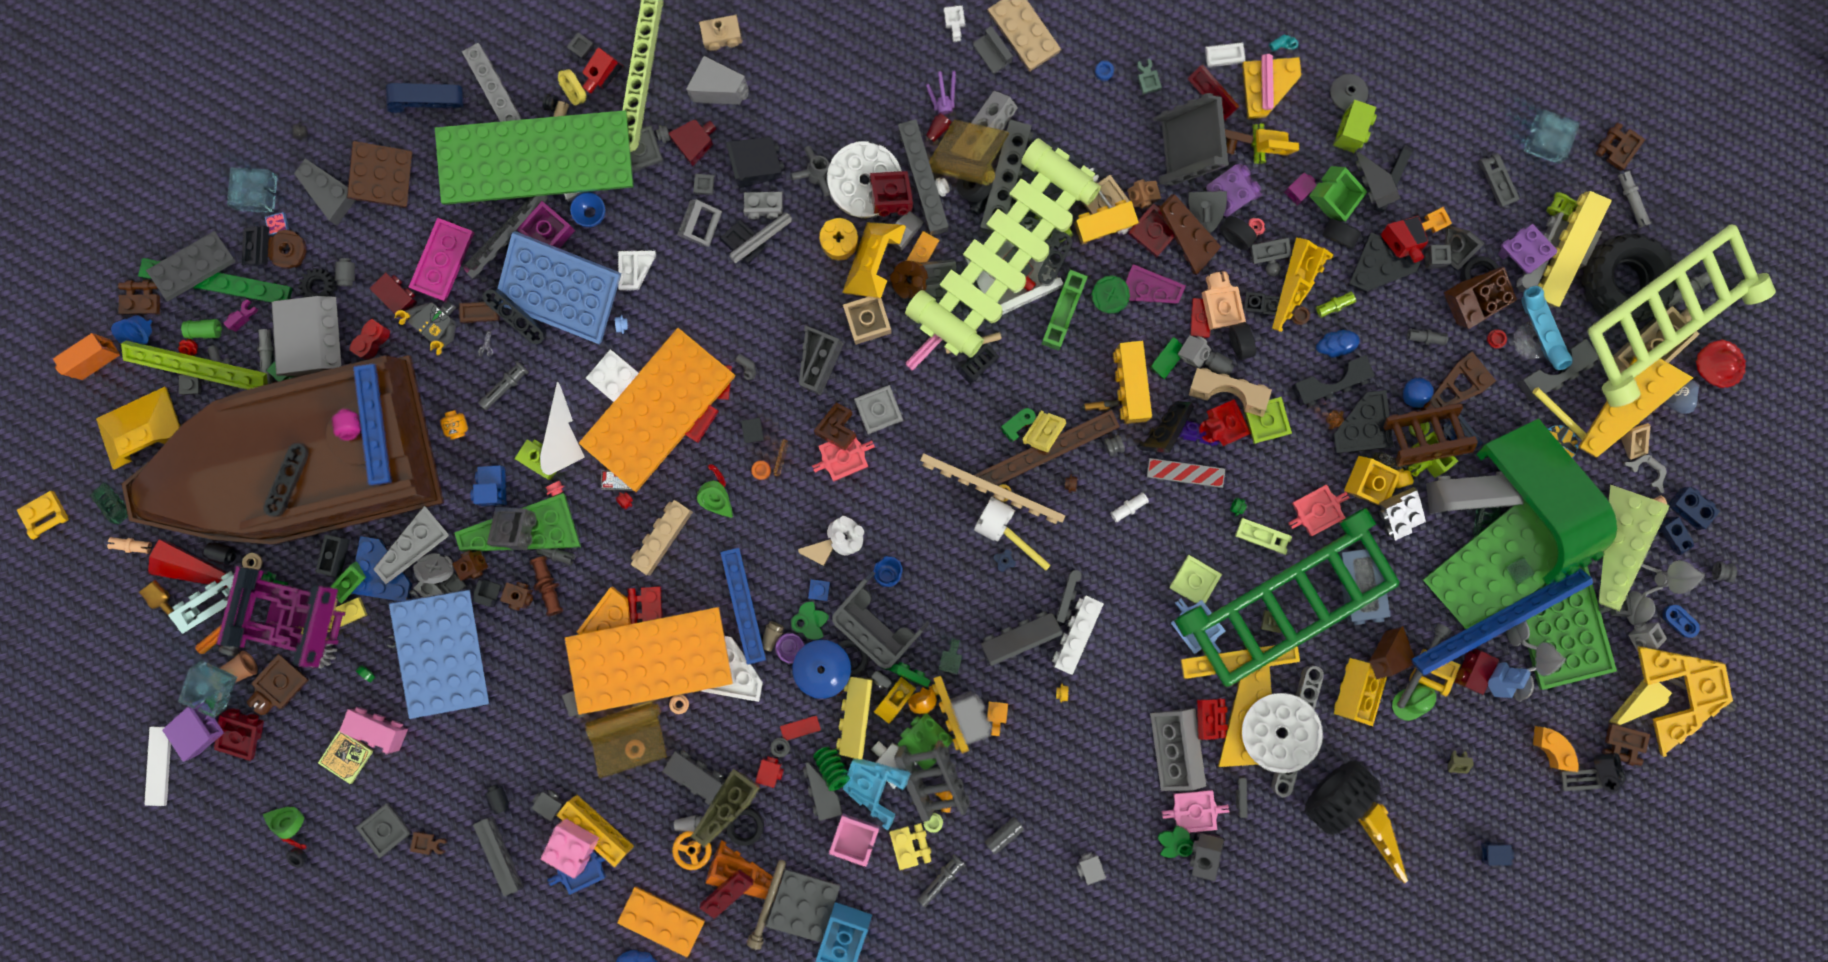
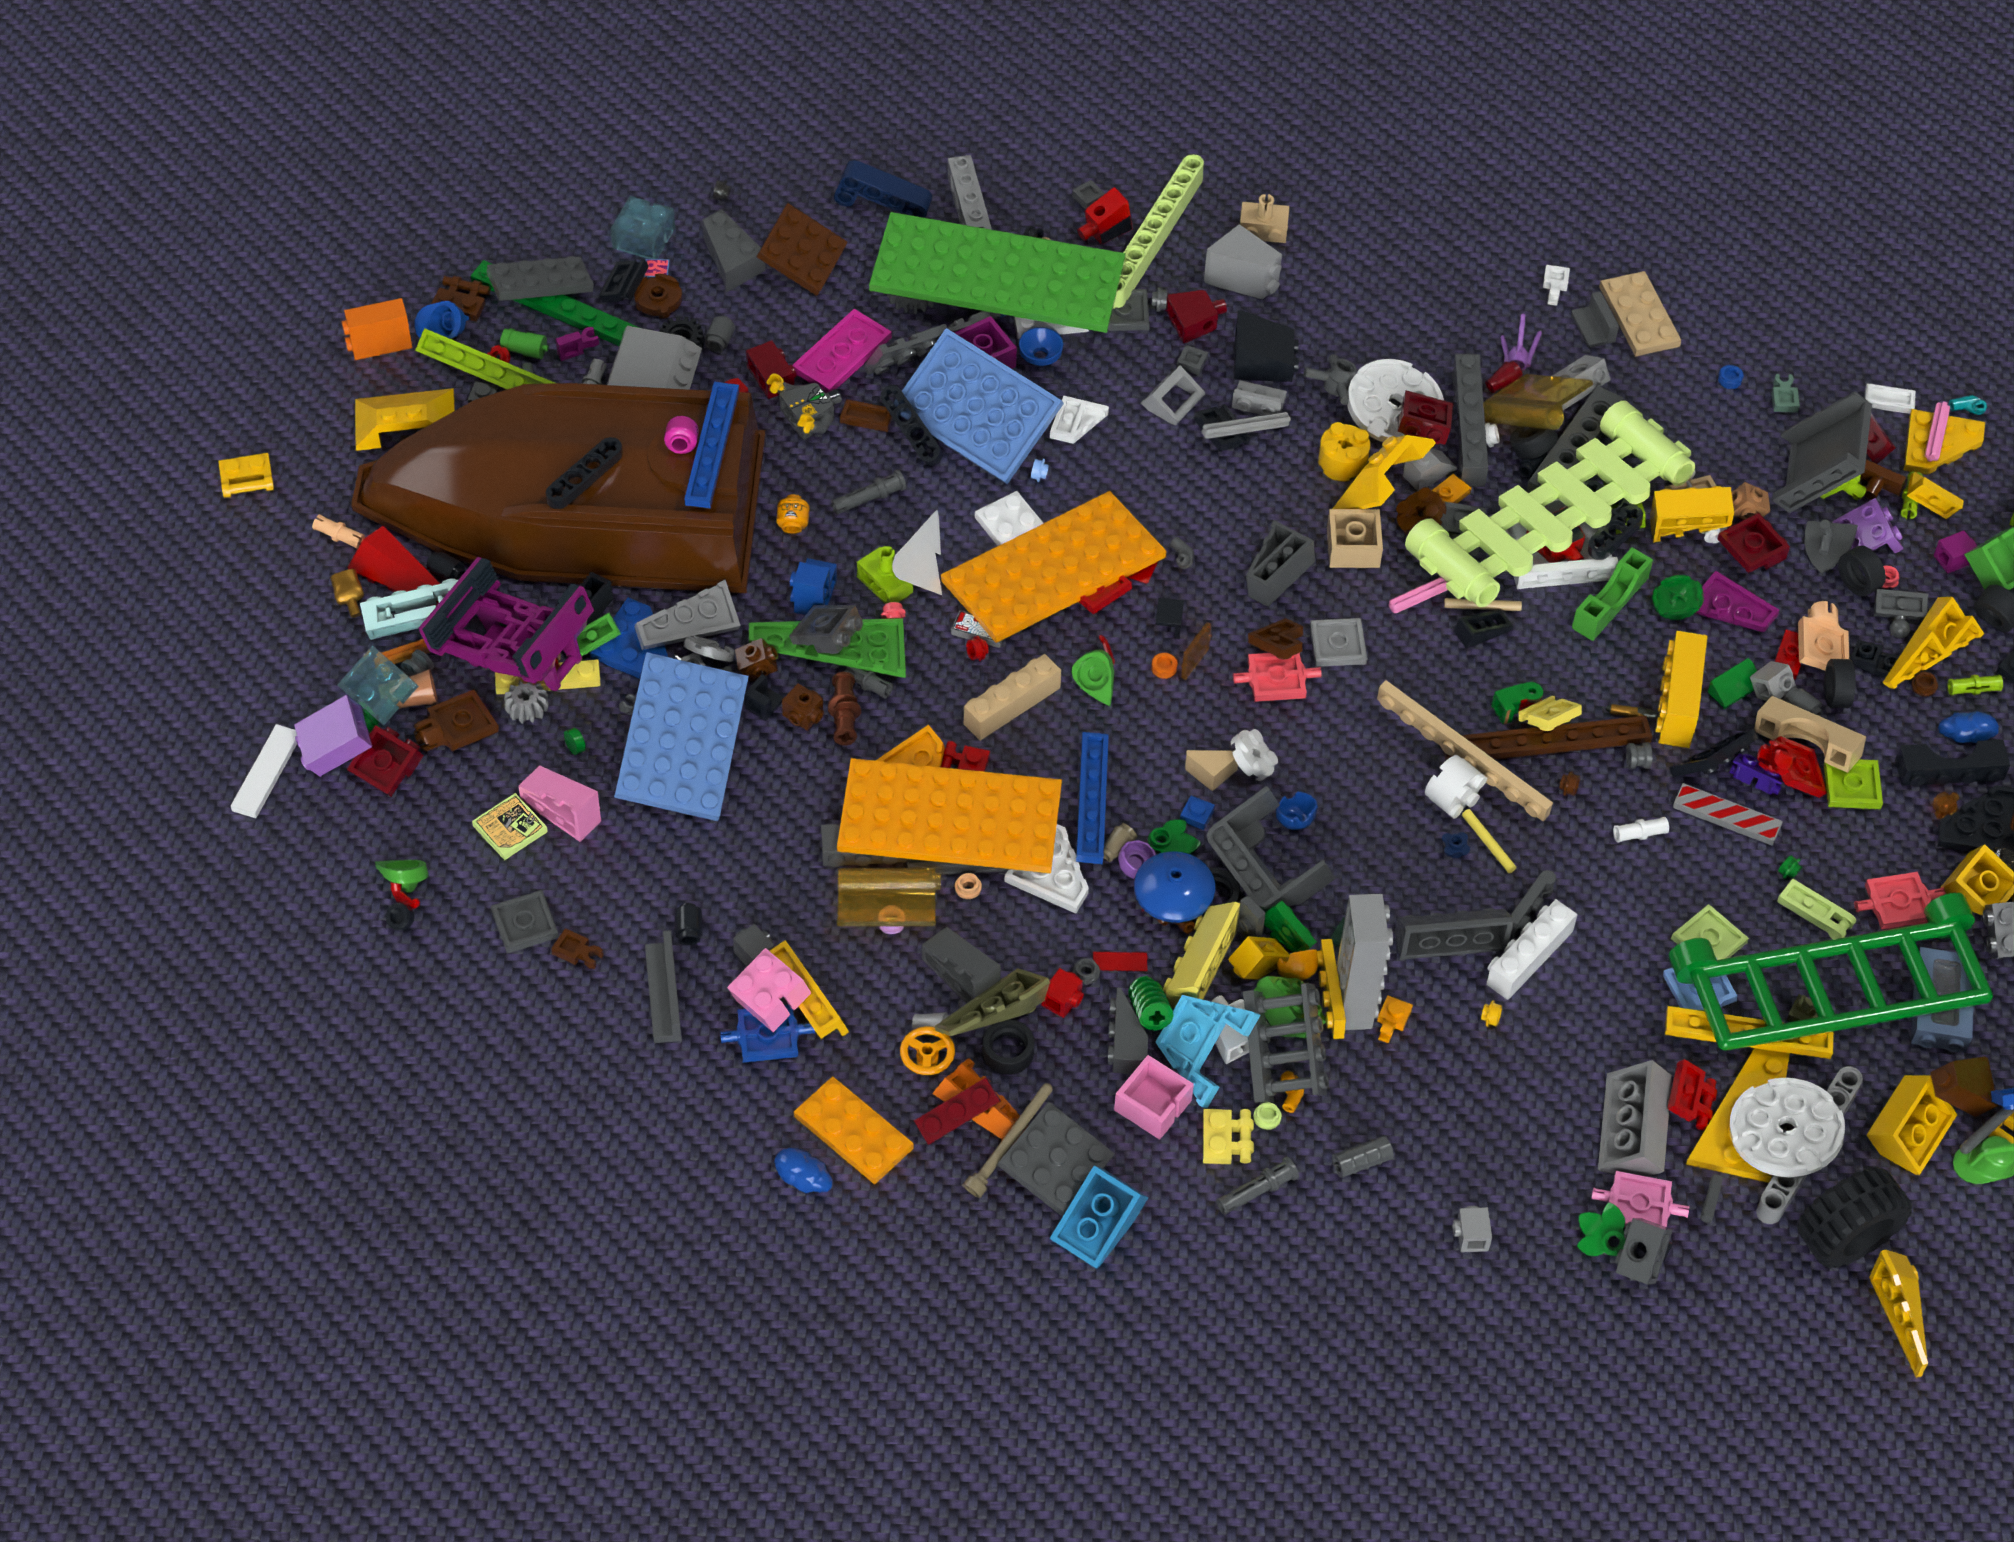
camera: 15 degrees right, 30 degrees down
(118, 513) = (335, 488): clear green slope -> none
(486, 345) = (861, 450): clear hand -> none
(571, 87) = (1064, 226): light yellow plate -> none
(1189, 234) = (1801, 561): reddish brown wing -> none

